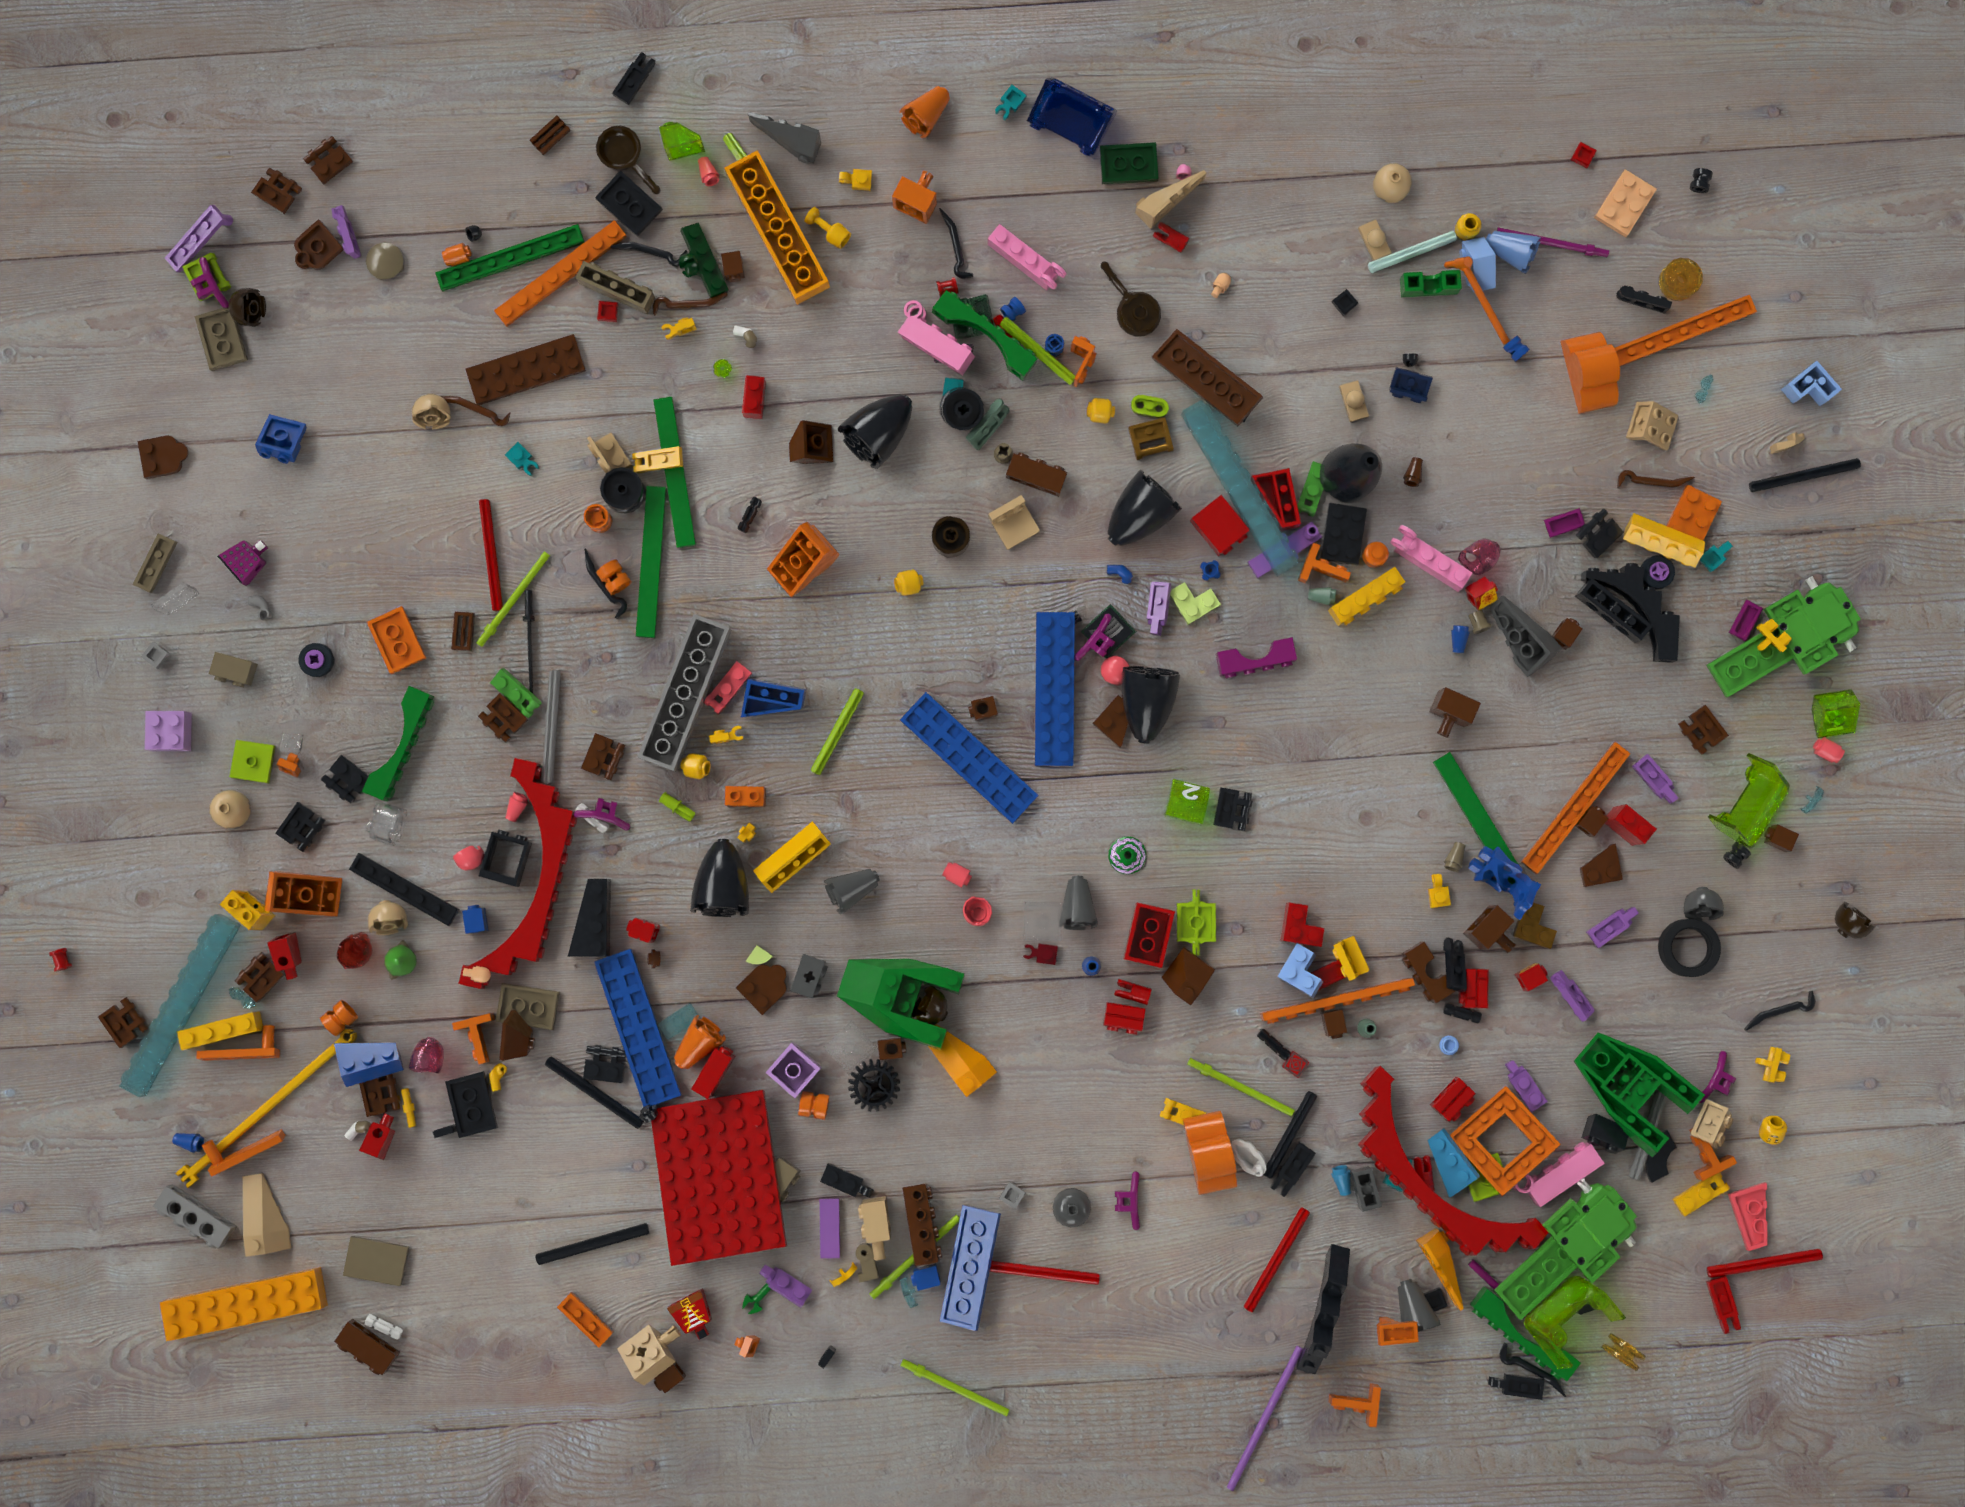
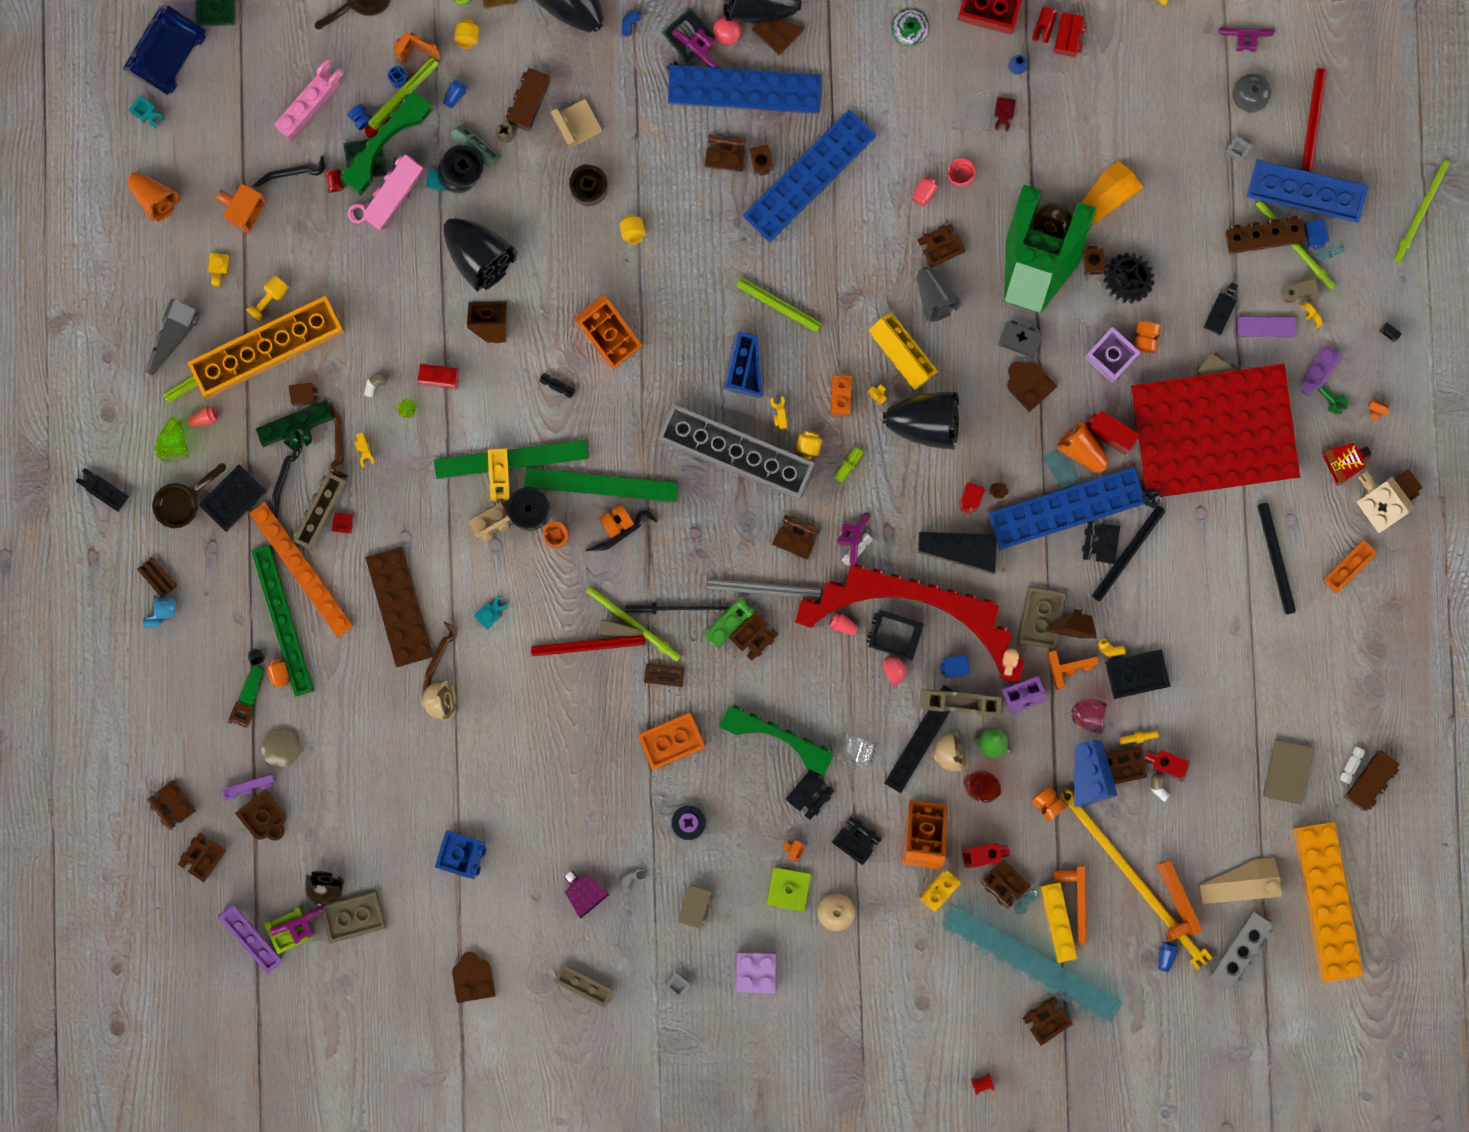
camera: 85 degrees left, 0 degrees up
(433, 226) = (247, 698): none -> green piece
(437, 905) = (960, 702): none -> dark tan arch
(444, 1131) = (1163, 700): black tile -> none
(446, 990) = (1024, 695): none -> medium lavender brick
(506, 579) = (610, 628): none -> dark tan slope
(517, 141) = (163, 609): none -> dark azure piece
(728, 687) = (730, 411): coral plate -> none
(758, 956) = (999, 388): yellowish green tile -> none
(876, 1224) = (1263, 279): tan brick -> none
(897, 896) = (943, 251): none -> reddish brown plate
(983, 673) = (725, 159): none -> reddish brown plate
(1040, 401) = (454, 93): none -> blue cone
(1078, 906) = (959, 74): dark grey cone -> none

